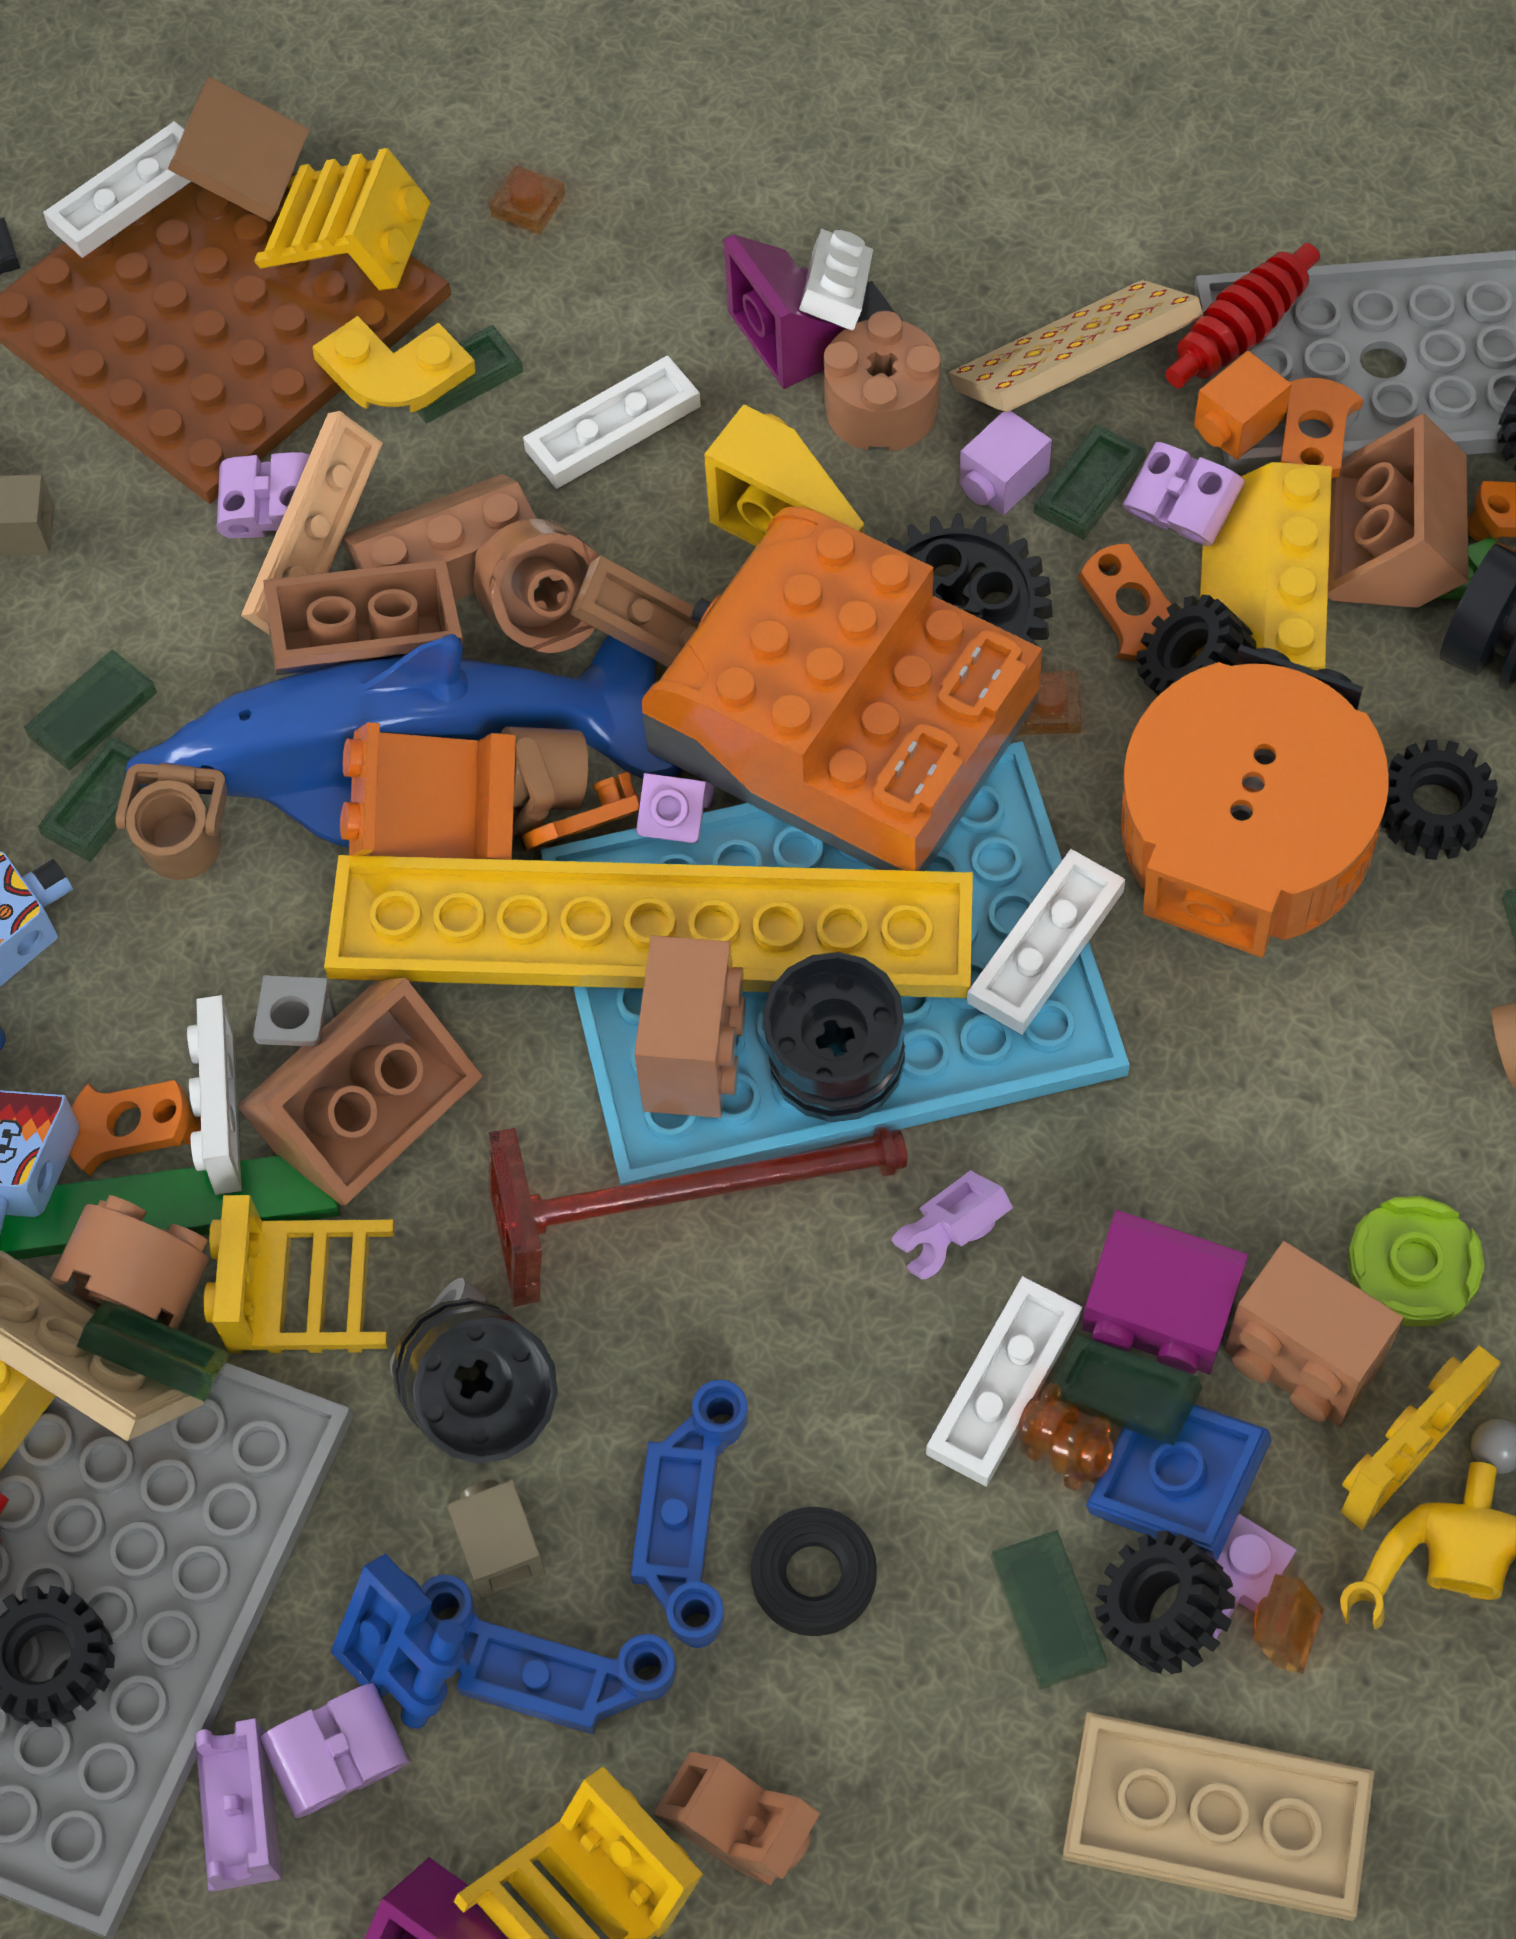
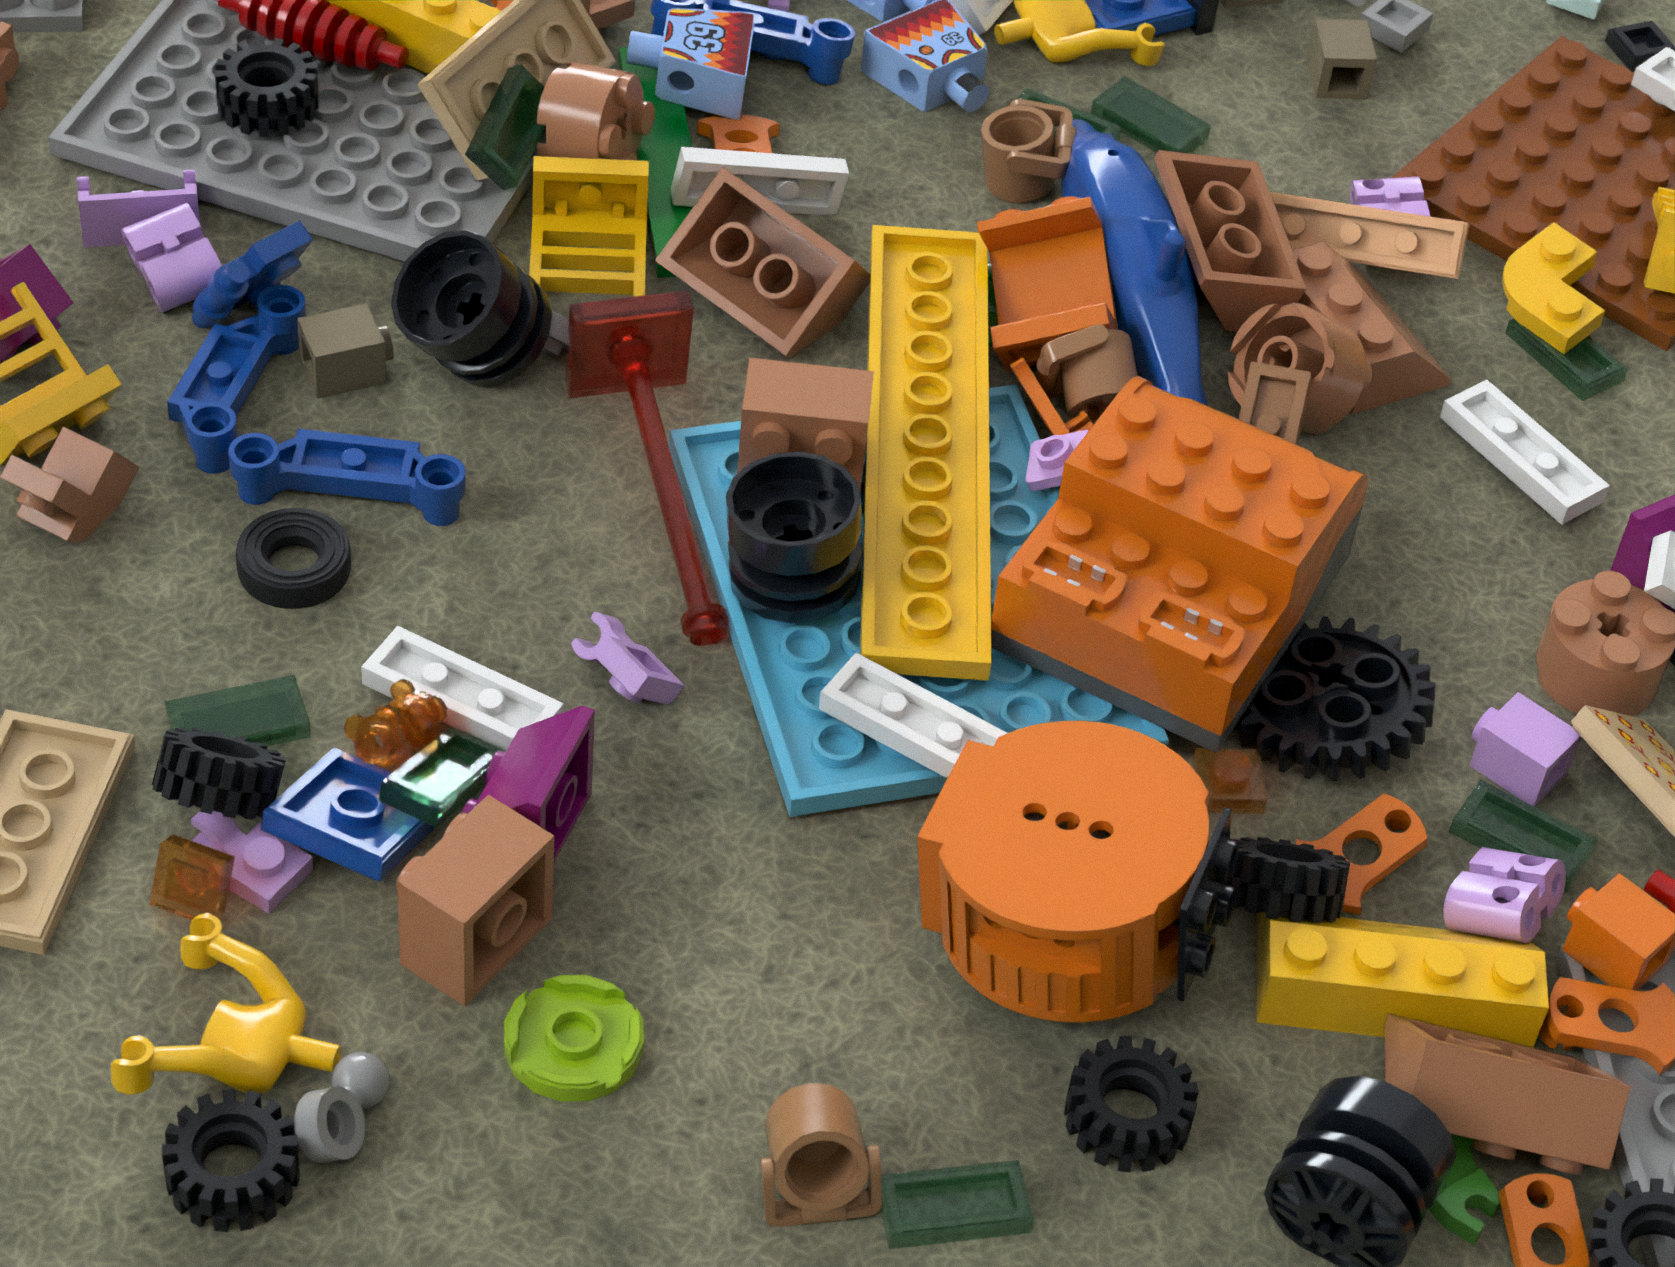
camera: 80 degrees right, 15 degrees down
(295, 1004) = (845, 214): light grey bracket -> none
(763, 468) = (1436, 546): yellow slope -> none
(1416, 1435) = (363, 988): yellow wing -> none

